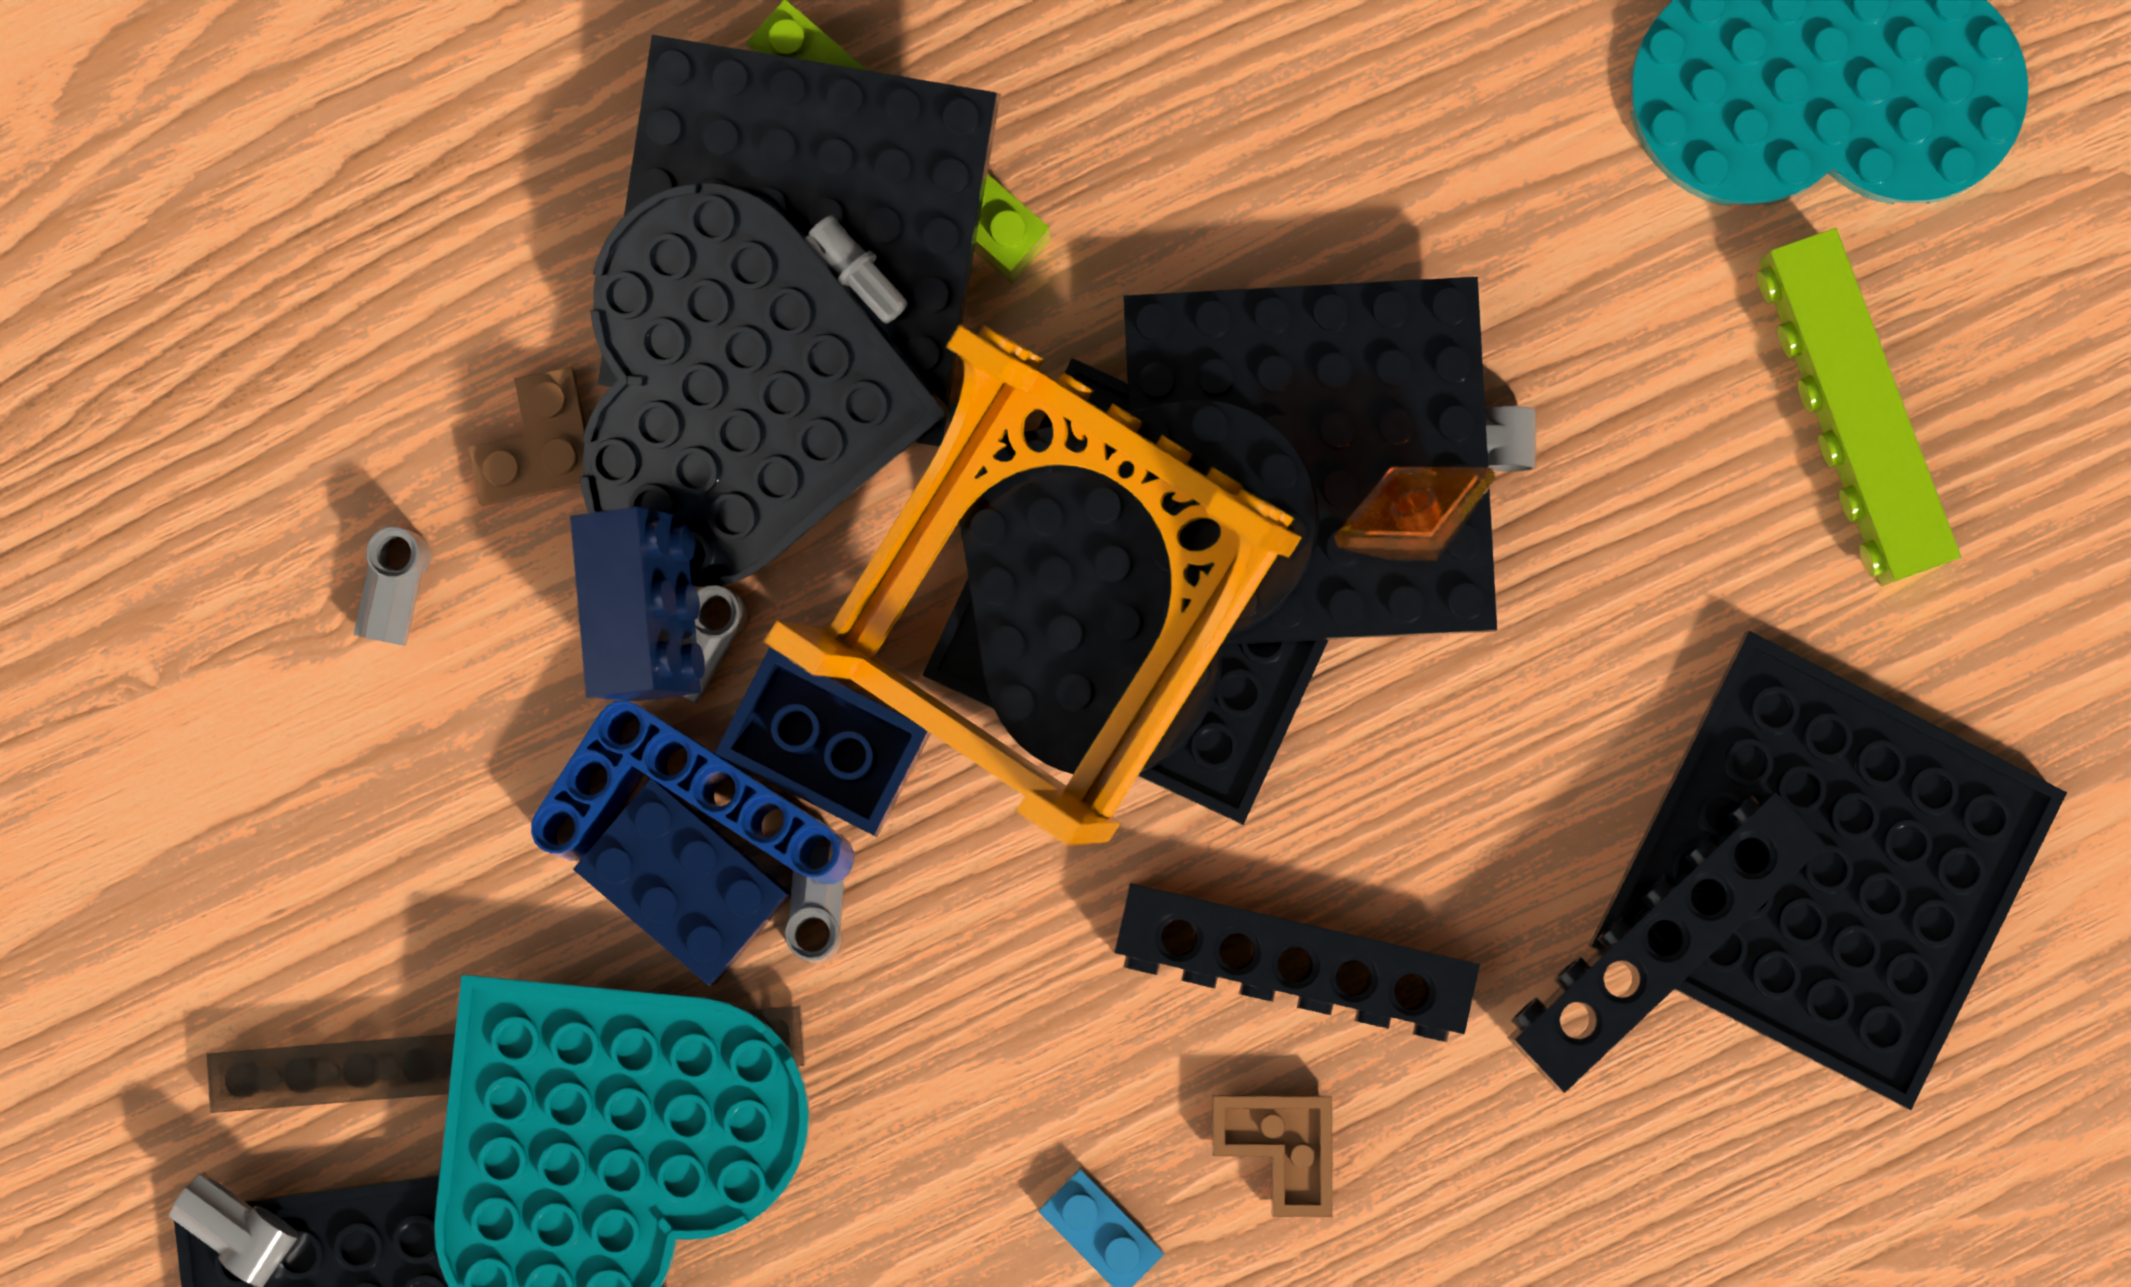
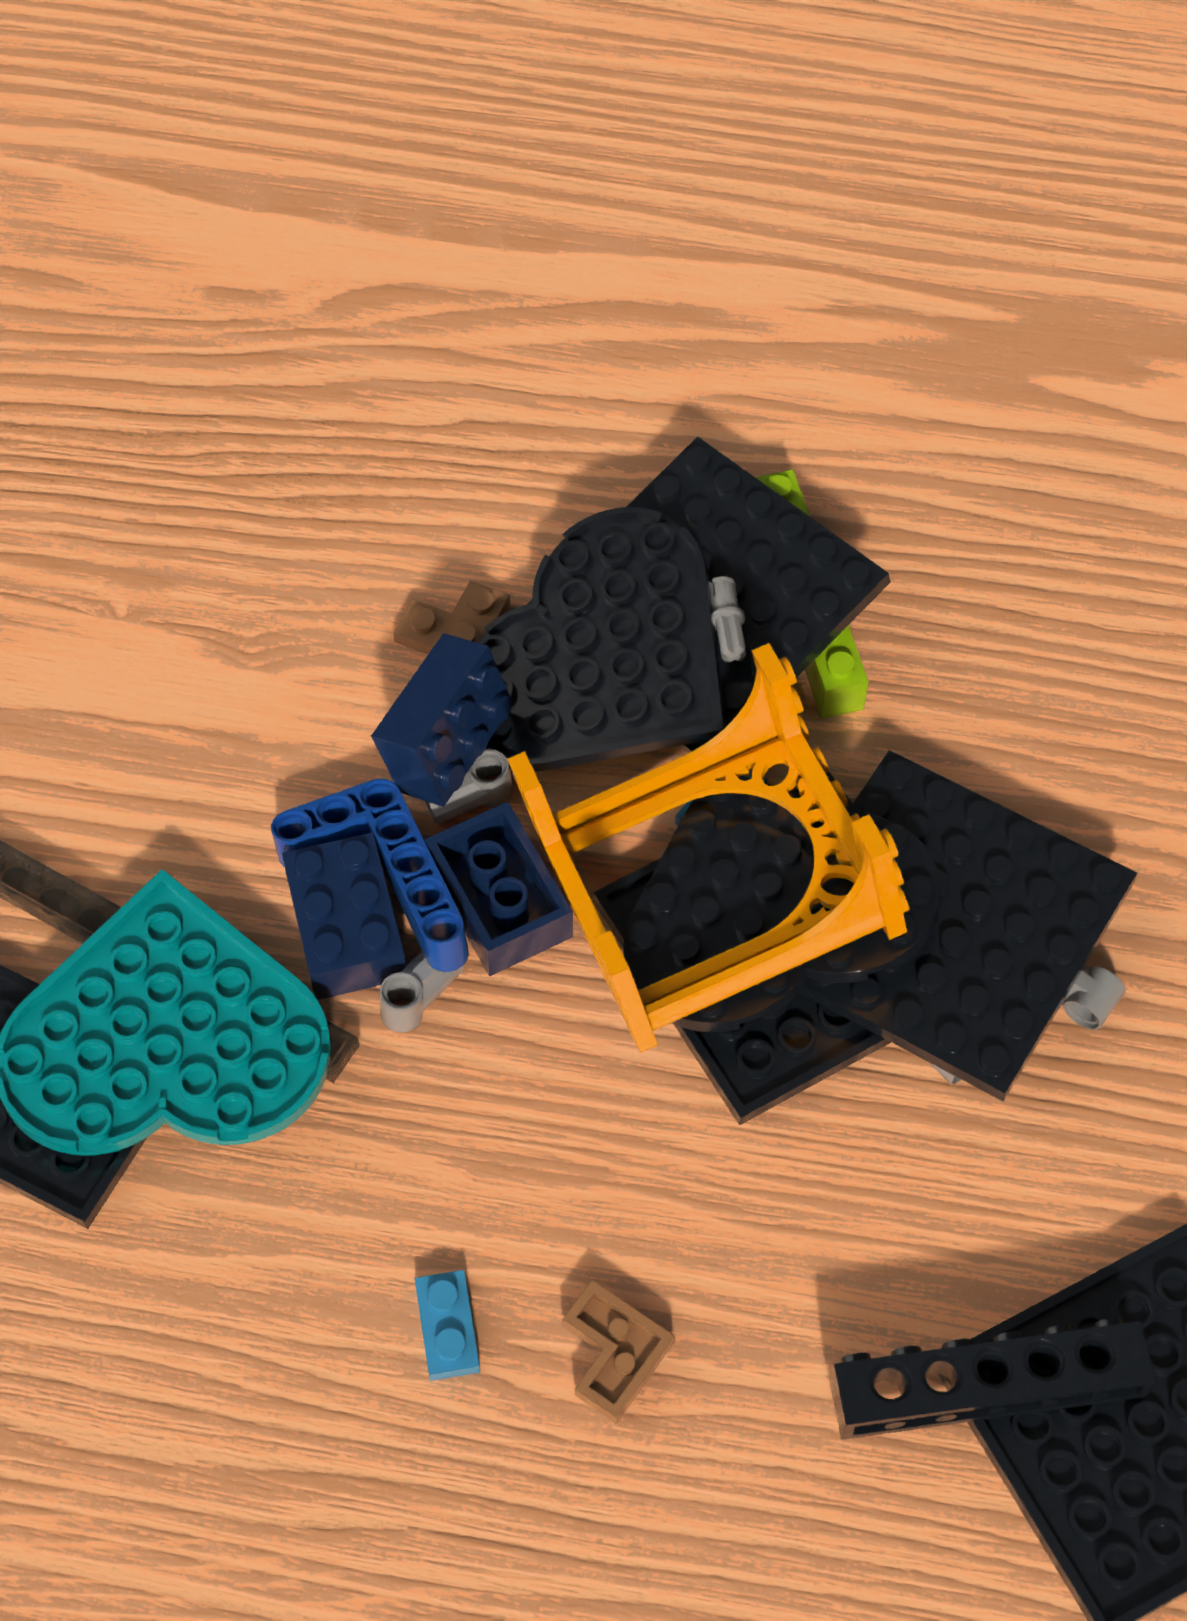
camera: 35 degrees right, 25 degrees down
(390, 594) = (303, 641): light grey piece -> none
(1415, 512) = (995, 974): clear orange slope -> none
(1446, 980) = (639, 1133): black brick -> none

